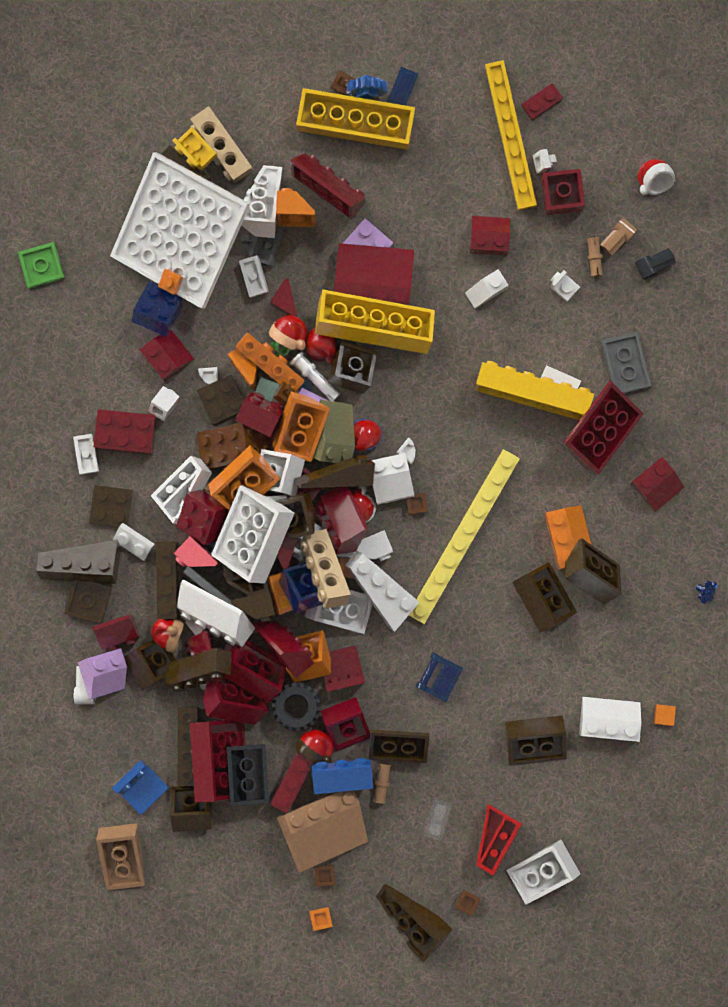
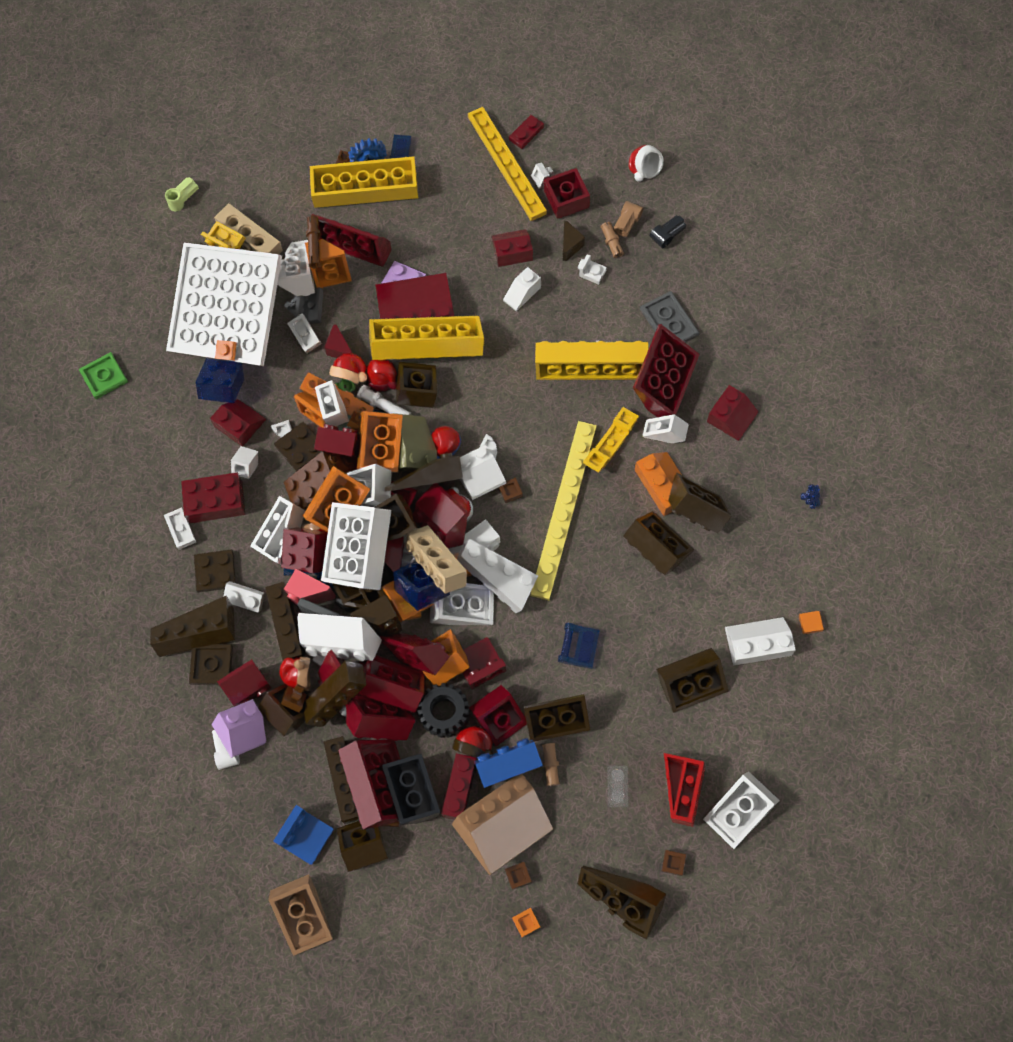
camera: 10 degrees left, 15 degrees down
(159, 658) = (294, 698): none -> reddish brown tile
(162, 75) = (177, 196): none -> yellowish green piece
(262, 373) = (331, 404): none -> white slope
(287, 187) = (313, 235): none -> reddish brown pin
(529, 479) = (612, 440): none -> yellow slope
(552, 247) = (572, 241): none -> dark brown slope
(586, 482) = (666, 429): none -> white slope

